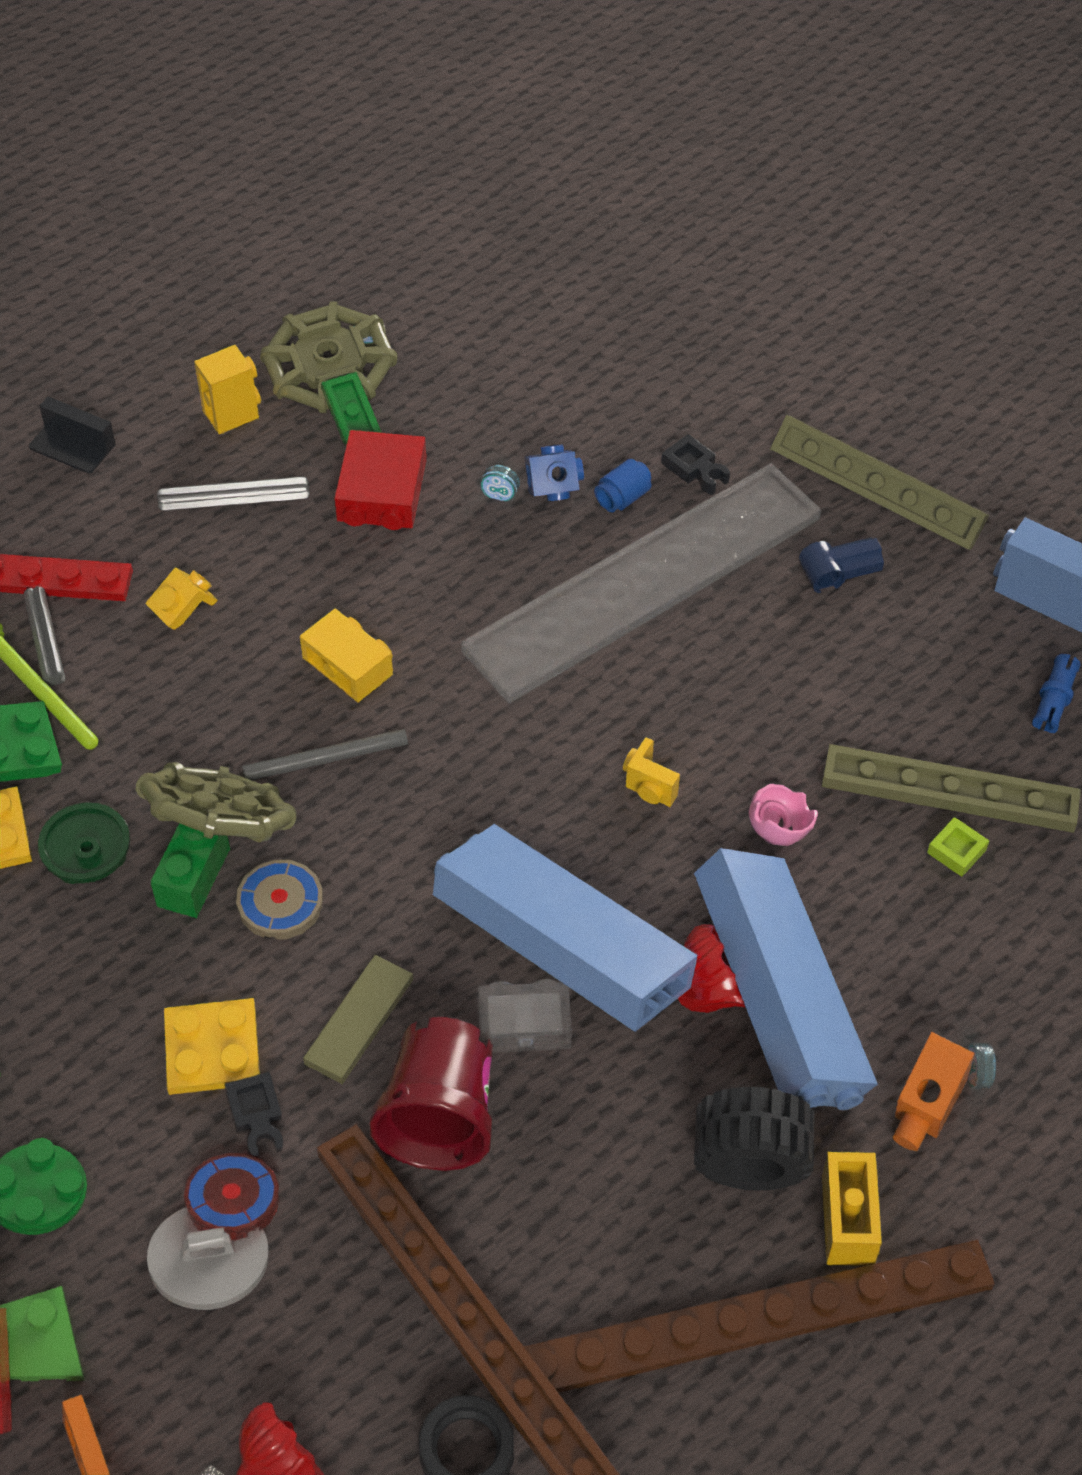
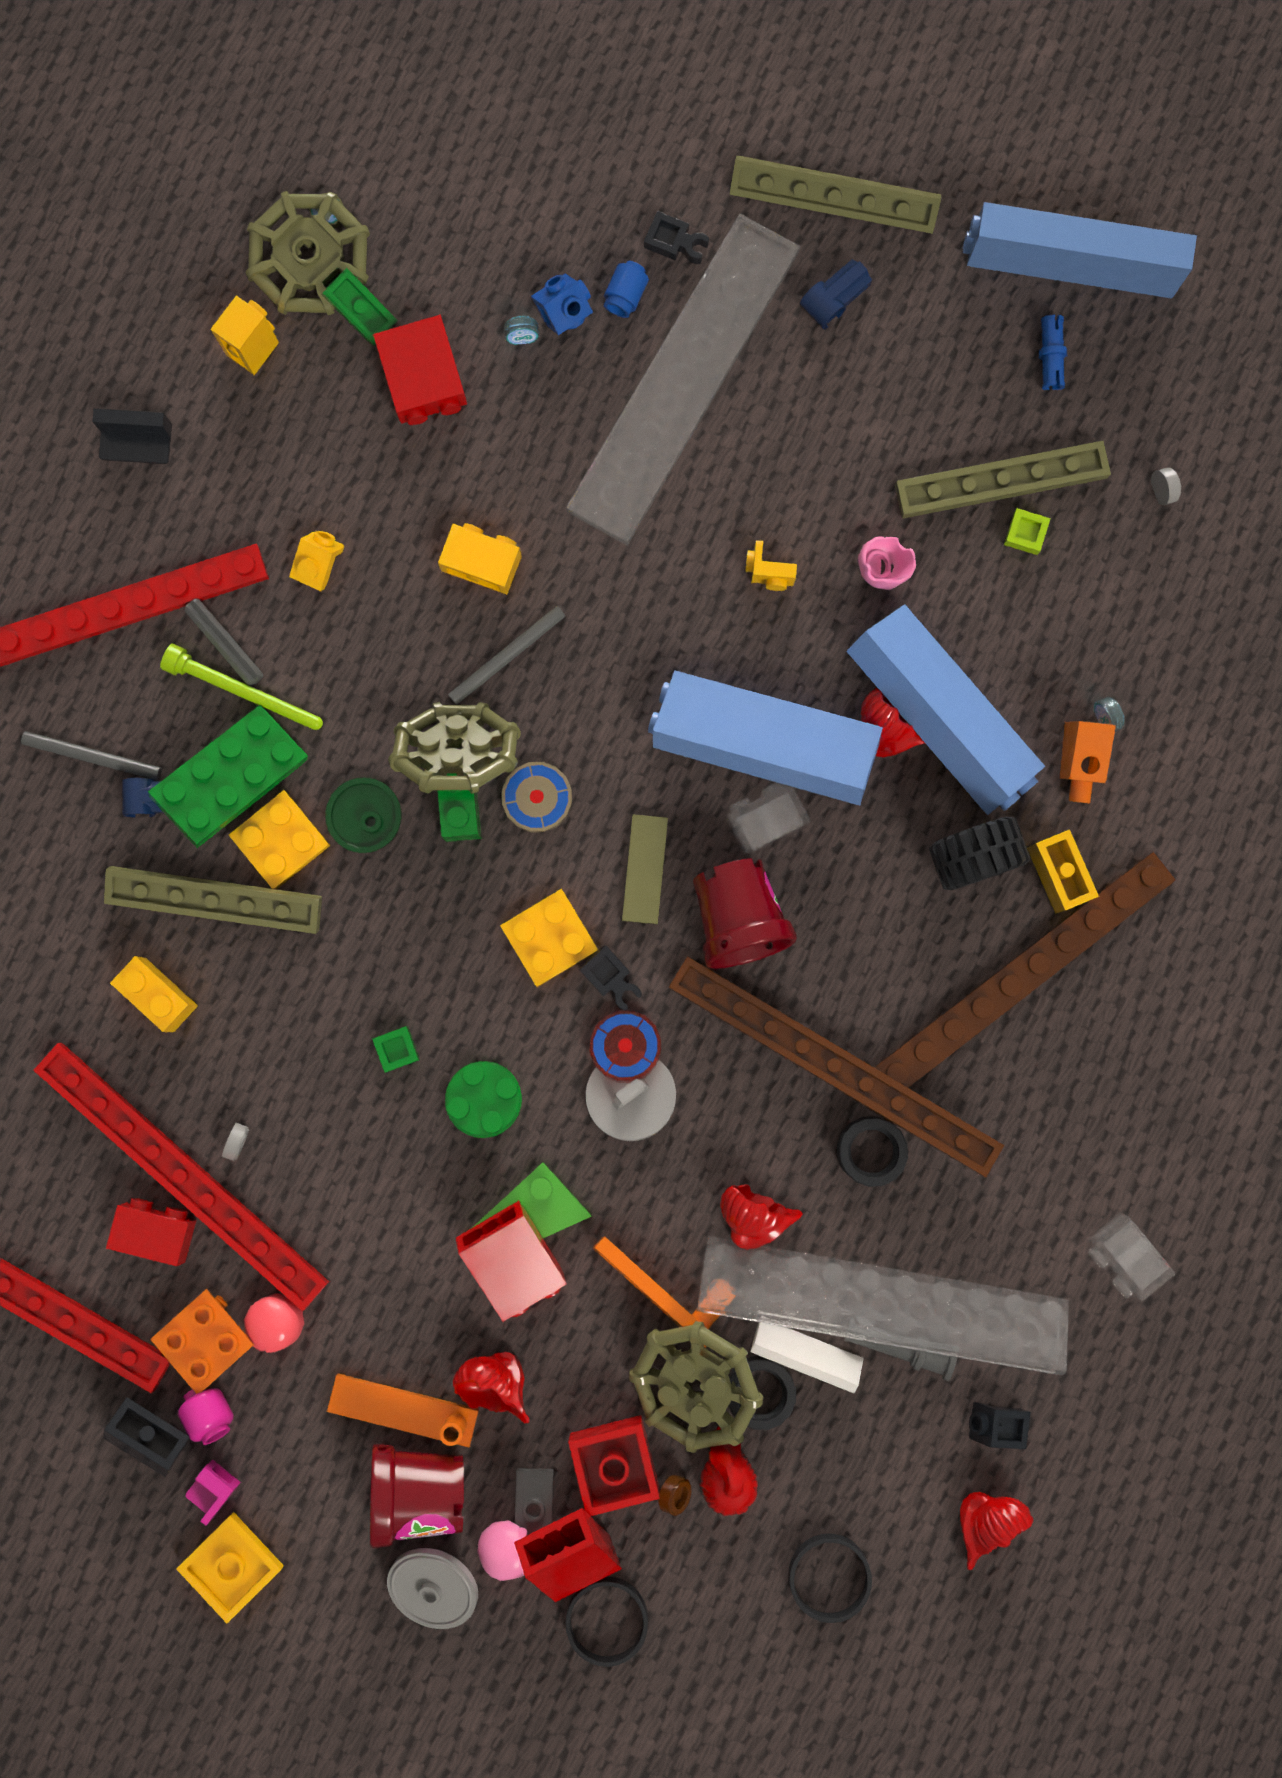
camera: 20 degrees left, 30 degrees up
(233, 493) = (301, 434): axle -> none

